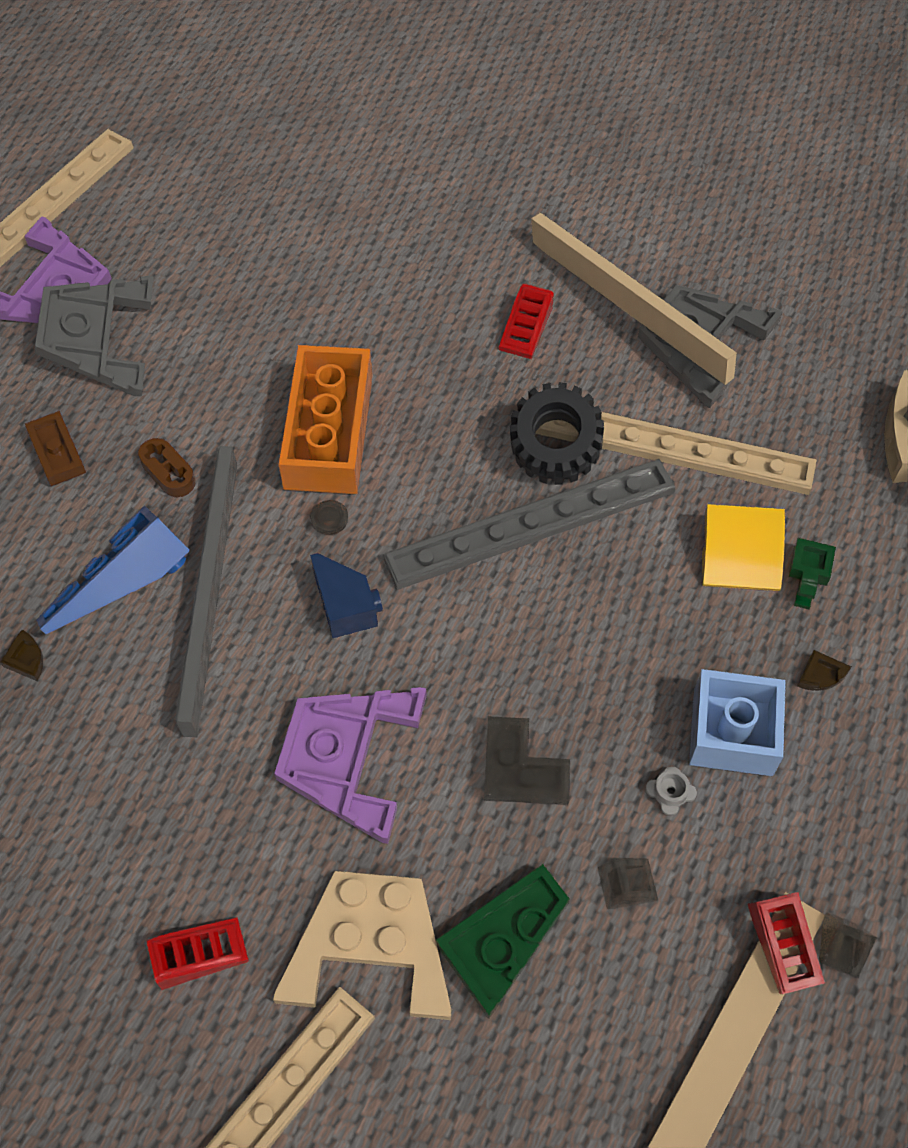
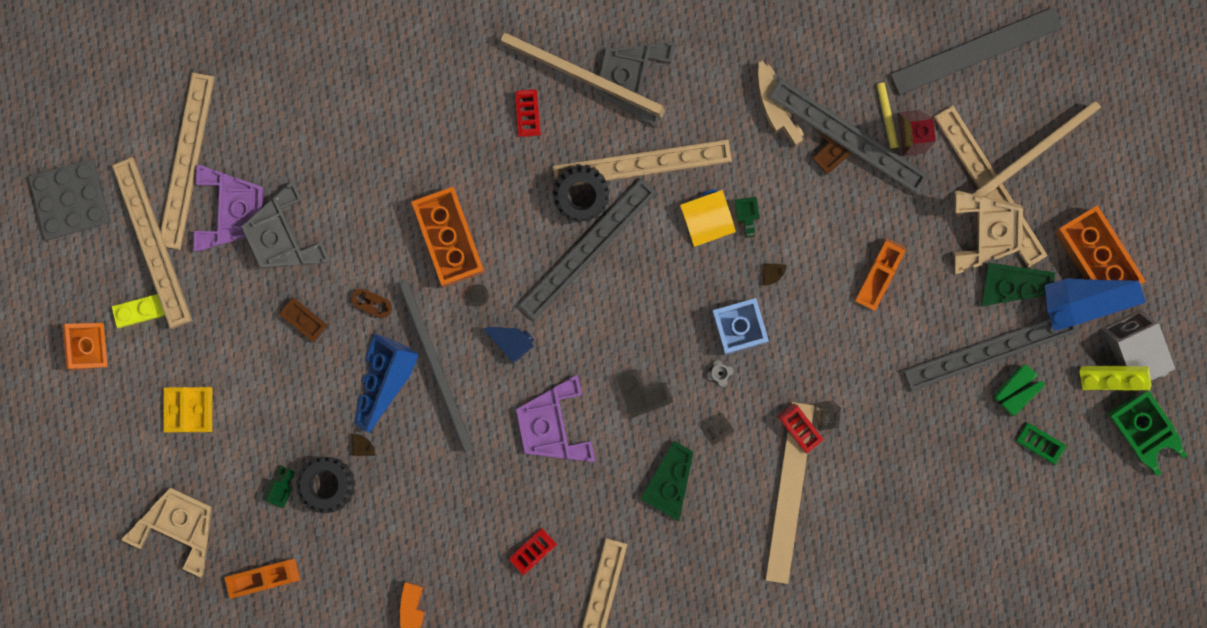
camera: 20 degrees left, 25 degrees up
(370, 923) = (606, 502): tan wing -> none

